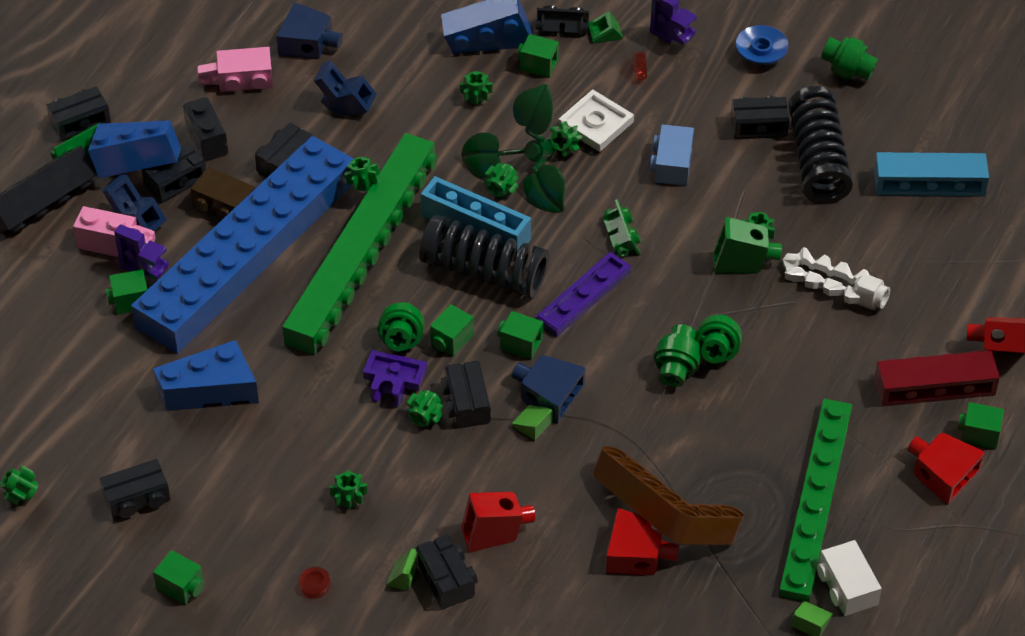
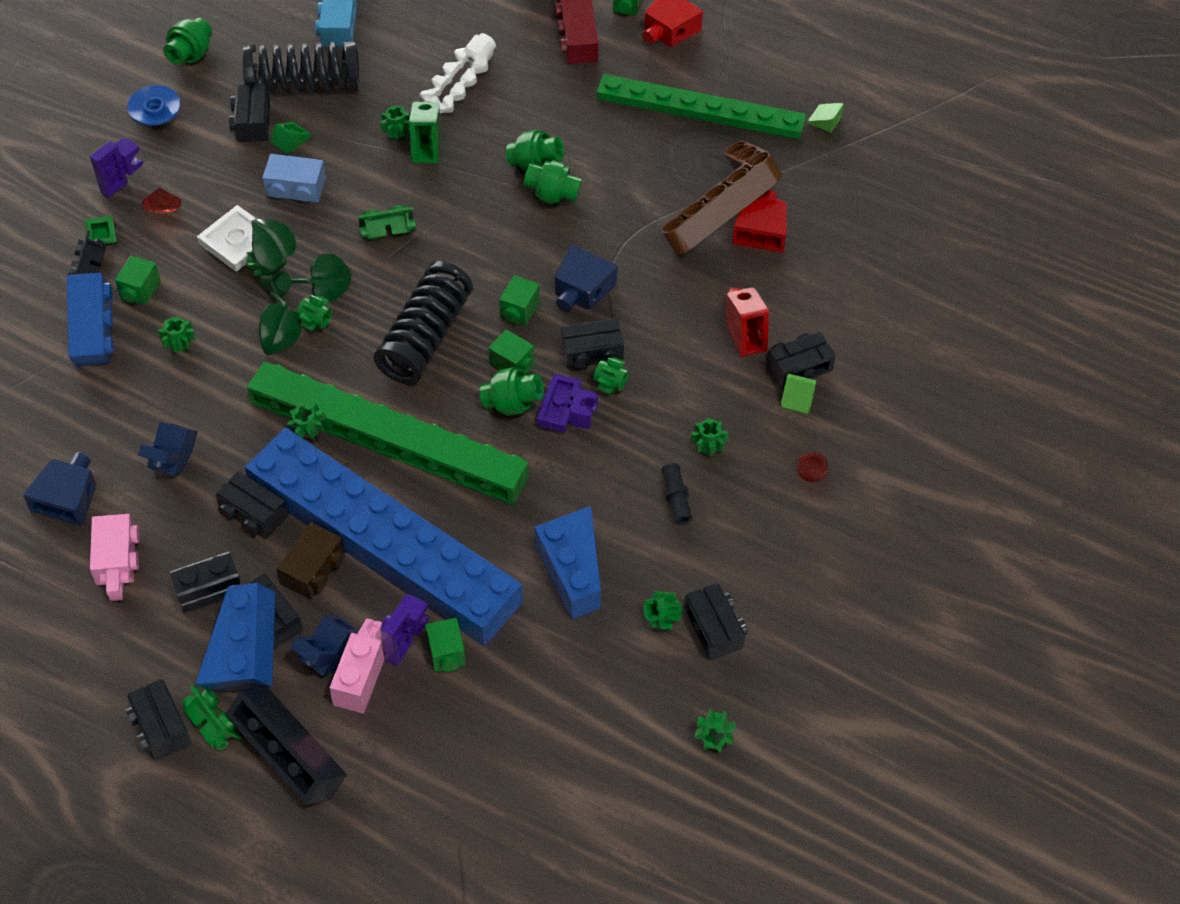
camera: 90 degrees left, 5 degrees up
(148, 446) = (662, 610): none -> green gear
(179, 577) = (822, 575): green brick -> none
(283, 464) = (676, 494): none -> black pin
(472, 209) = (365, 331): dark azure brick -> none
(533, 421) = (619, 295): bright green slope -> none
(583, 294) = (455, 250): dark purple tile -> none
(739, 152) = (289, 136): none -> green slope
(849, 578) = (789, 86): white brick -> none

